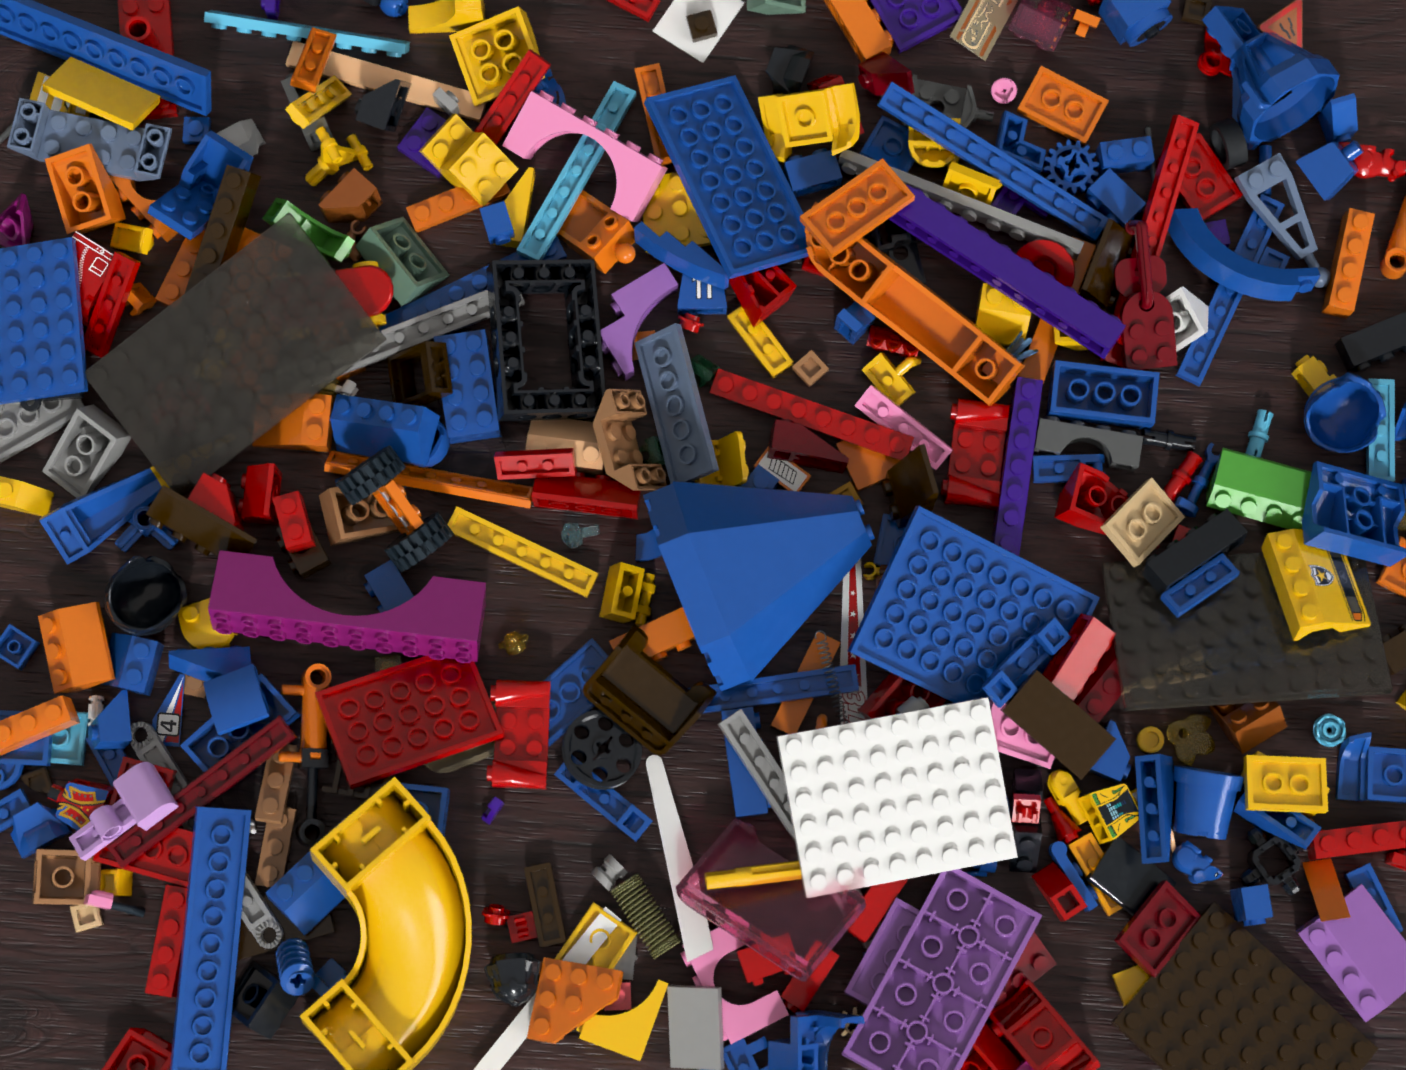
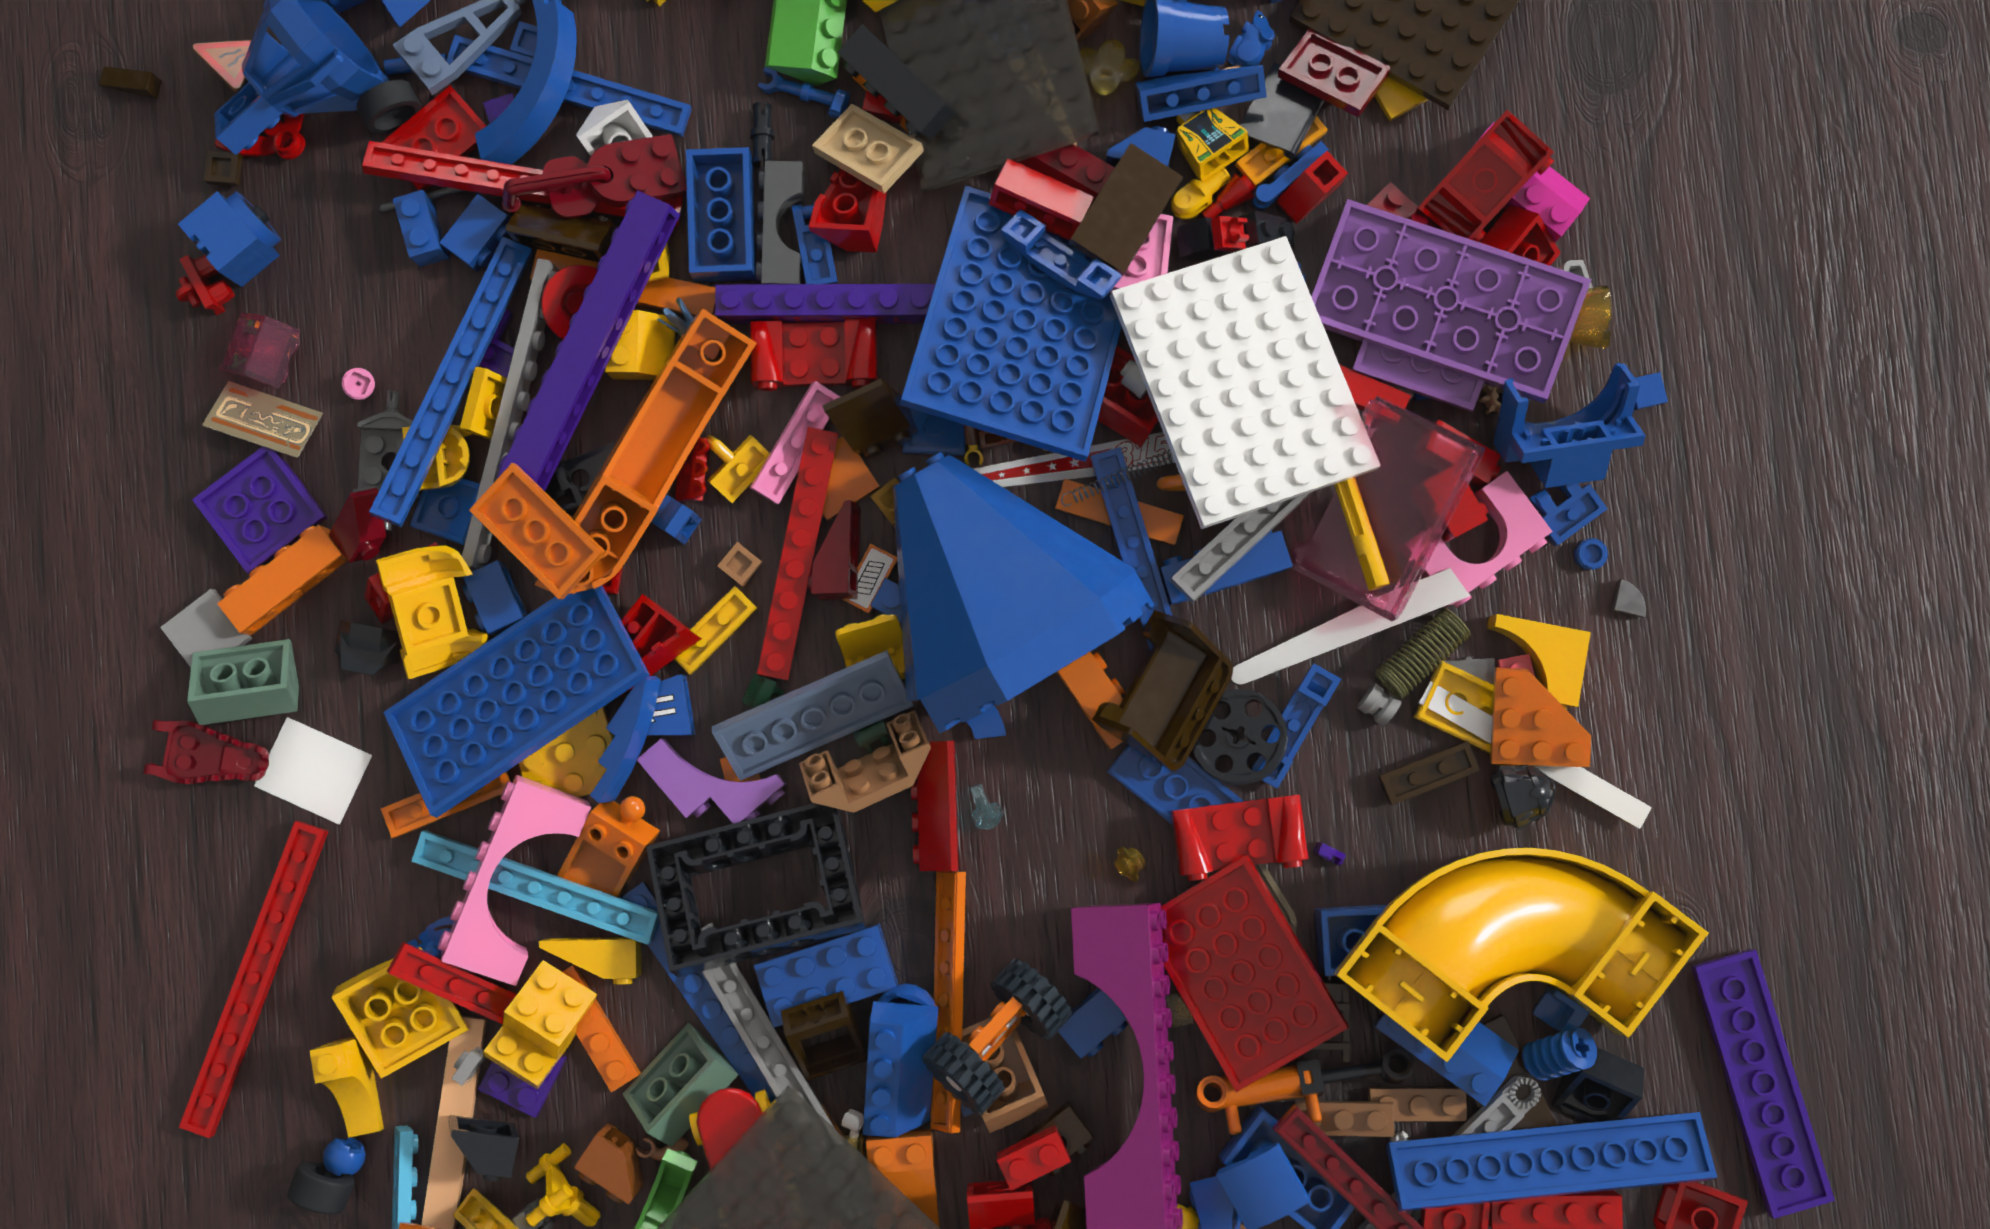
camera: 100 degrees left, 5 degrees up
(495, 914) = (1450, 829): red plate -> none
(497, 223) = (618, 973): blue brick -> none
(522, 552) = (1018, 873): yellow plate -> none
(522, 927) = (1457, 796): red tile -> none
(535, 463) = (914, 873): red plate -> none
(568, 434) = (880, 844): light nougat slope -> none
(623, 594) = (1050, 737): yellow brick -> none
(690, 322) = (705, 716): red plate -> none
(695, 1027) = (1539, 575): light grey tile -> none
(701, 26) = (325, 764): dark brown plate -> none
(1011, 141) = (421, 364): blue brick -> none
(1062, 105) = (367, 311): orange plate -> none
(1080, 169) = (438, 279): blue gear -> none
(1085, 21) = (255, 297): orange tile -> none
(1150, 740) = (1117, 111): yellow tile -> none
(1182, 475) = (802, 113): red pin -> none
(1199, 585) = (935, 70): blue plate -> none
(1258, 435) = (739, 32): medium azure pin -> none

